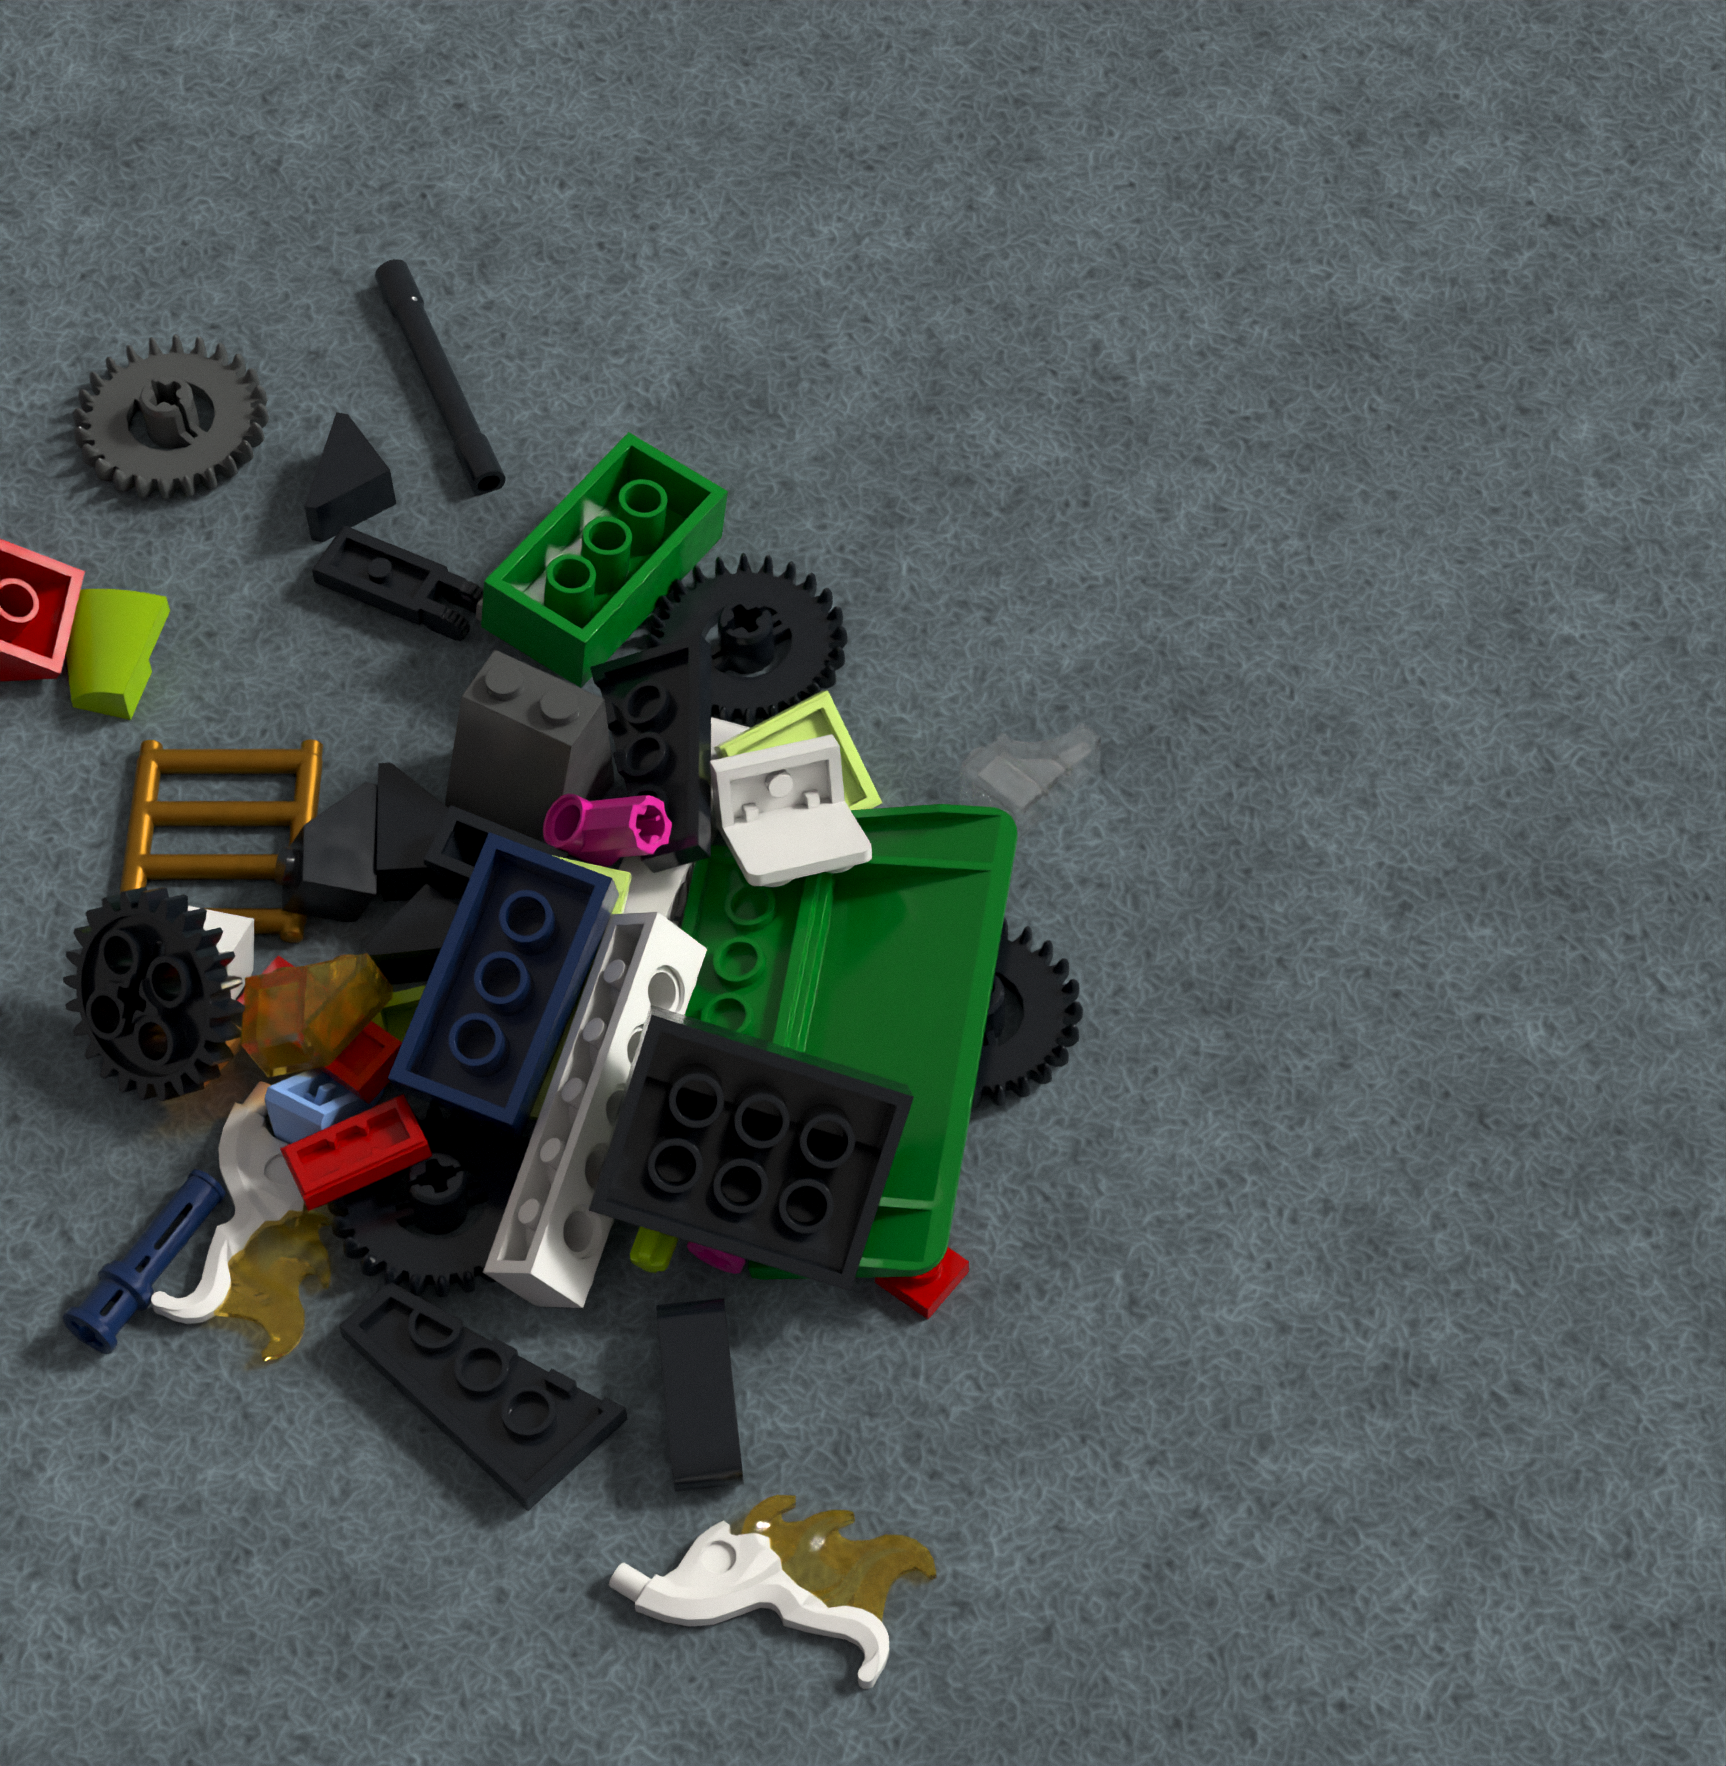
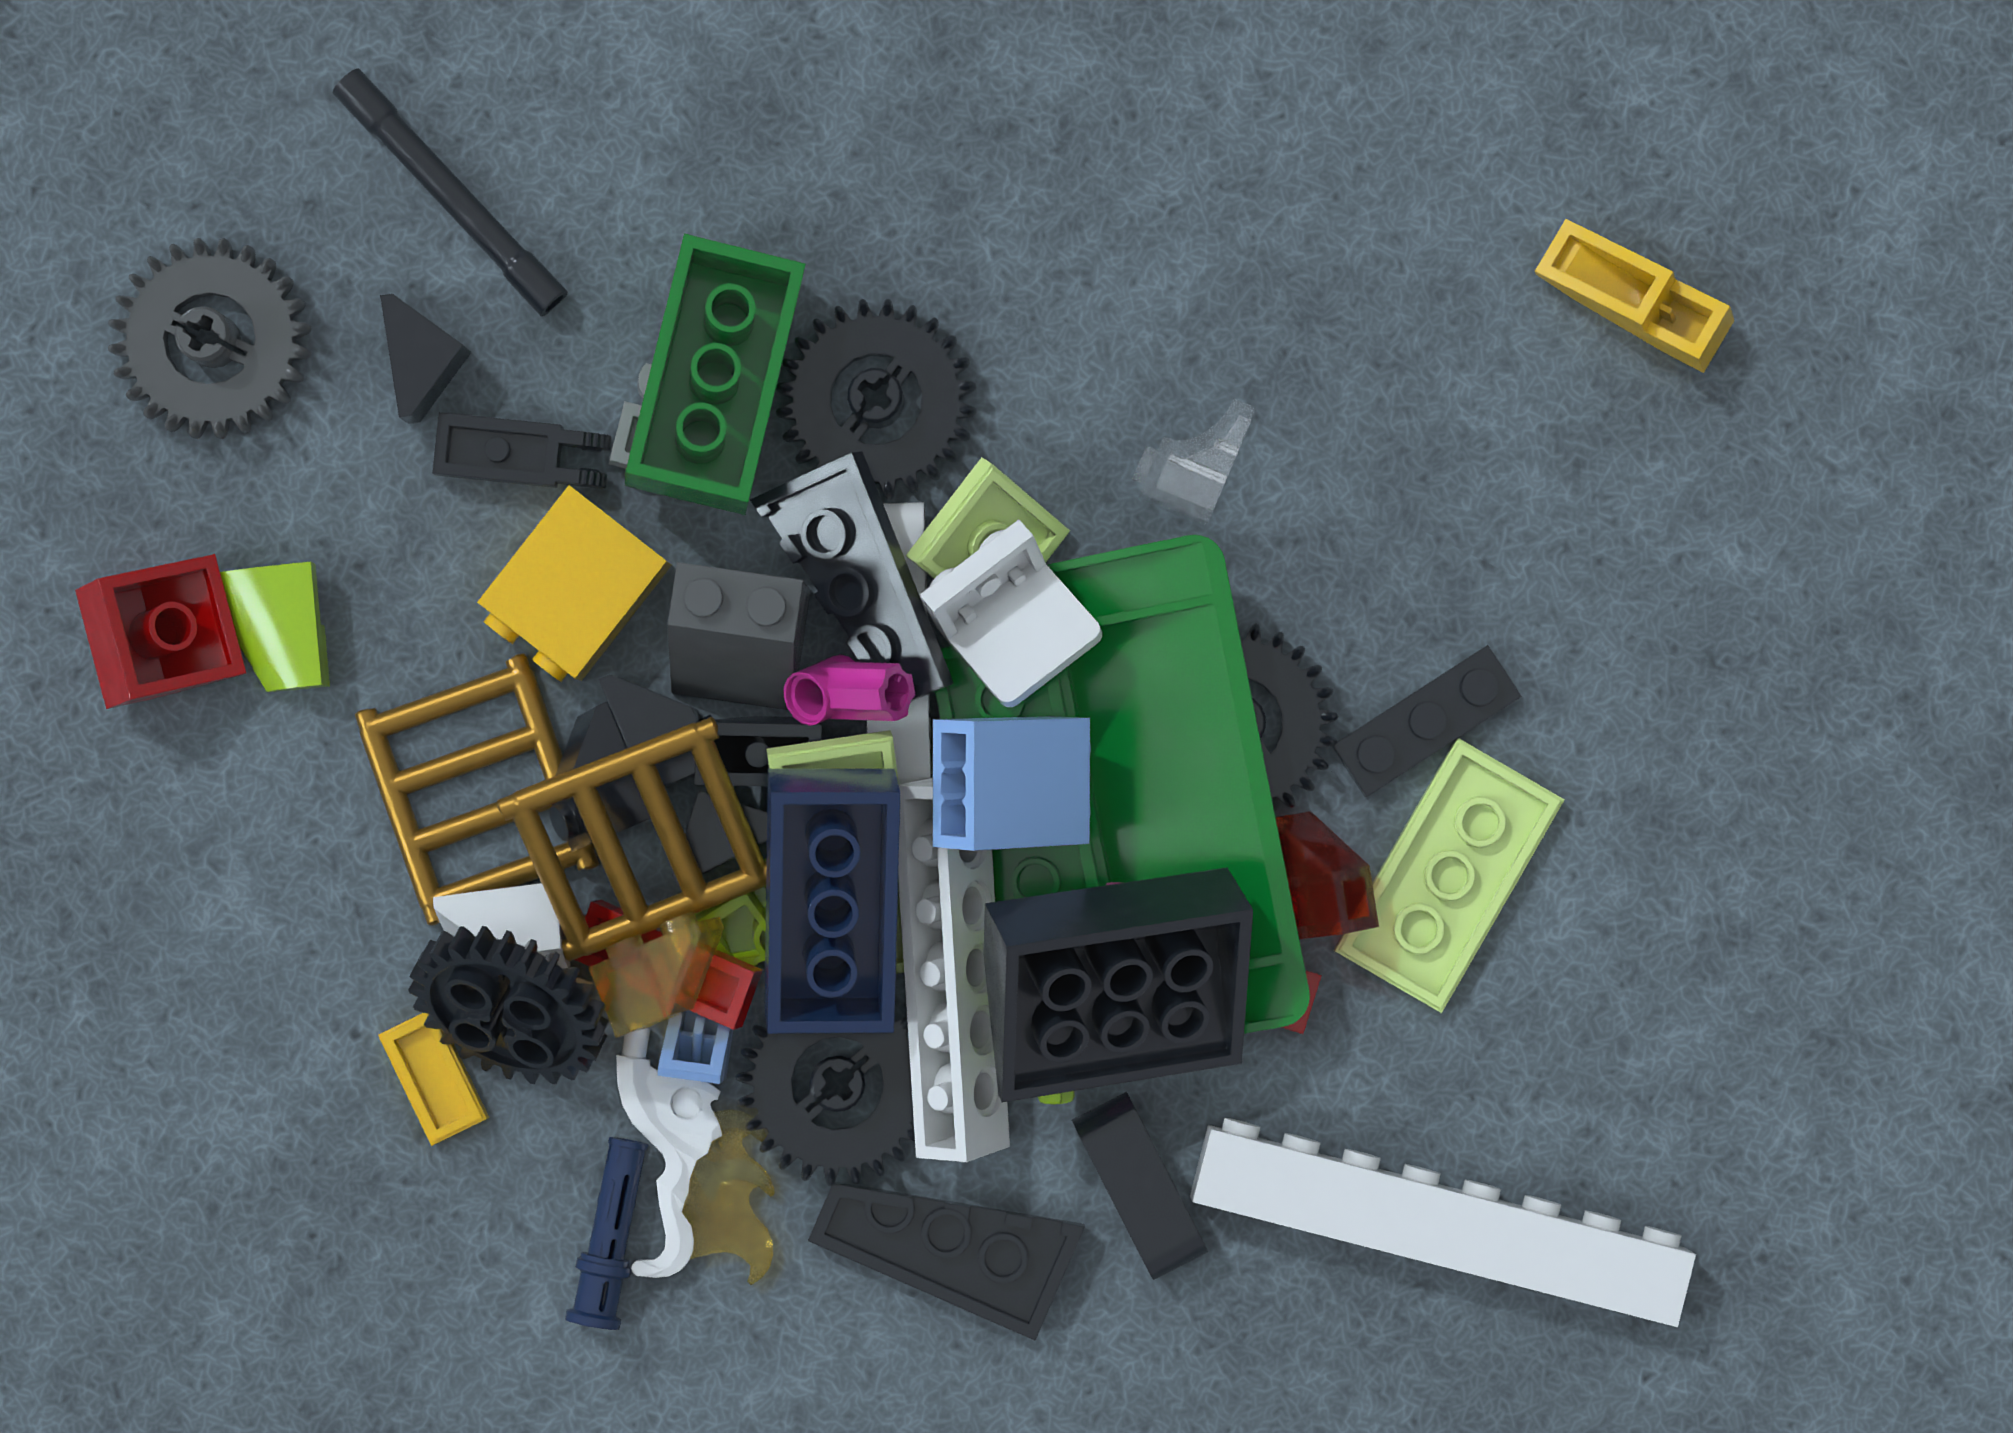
camera: 20 degrees left, 30 degrees up
(50, 1070) = (433, 1079): none -> yellow tile
(317, 811) = (639, 762): none -> pearl gold bar
(356, 1152) = (758, 1092): red plate -> none
(388, 694) = (572, 586): none -> yellow brick
(727, 936) = (1011, 782): none -> light blue brick
(795, 1569) = (1279, 1307): piece -> none
(1002, 1173) = (1325, 878): none -> clear red slope
(1005, 1537) = (1443, 1224): none -> white brick
(1135, 1220) = (1451, 874): none -> yellowish green tile
(1166, 1073) = (1426, 721): none -> black plate
(1512, 776) = (1636, 295): none -> yellow slope

